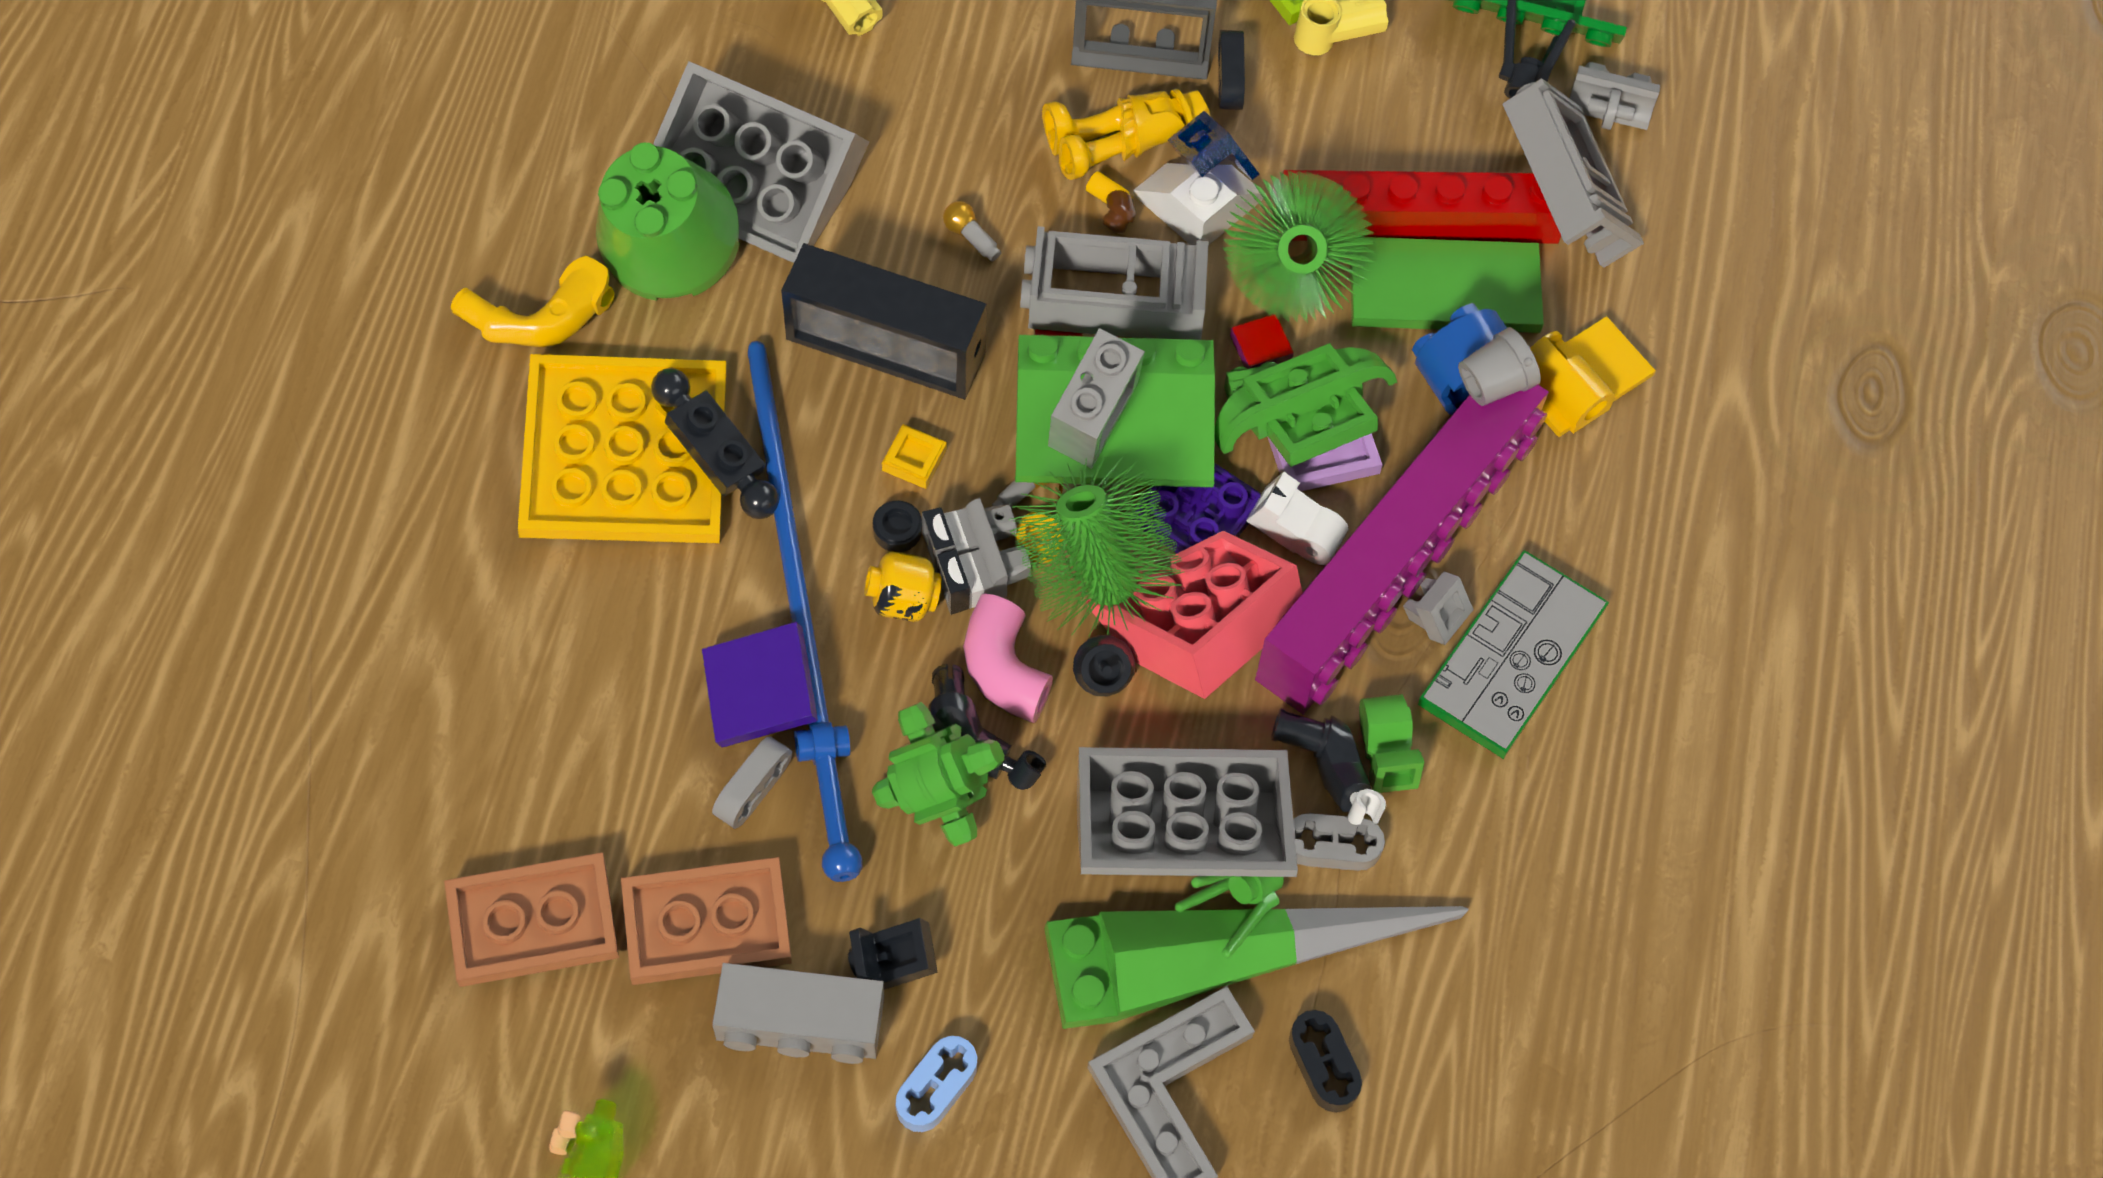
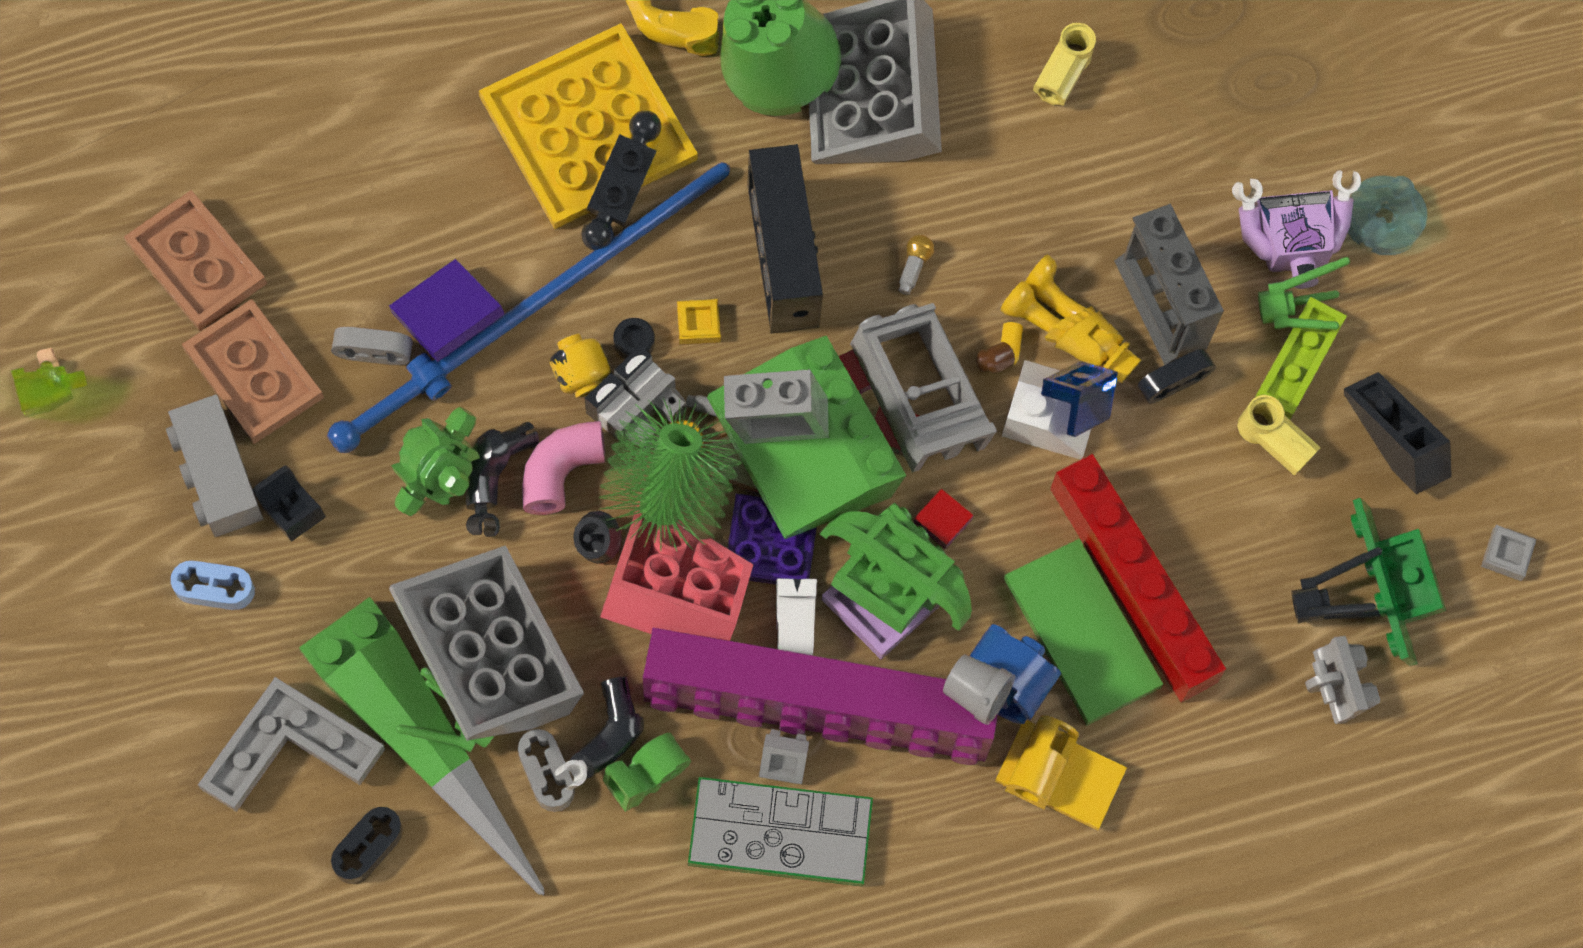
camera: 60 degrees right, 5 degrees up
(1322, 244) = (1018, 492): bright green piece -> none
(1571, 171) = (1189, 688): light grey door -> none

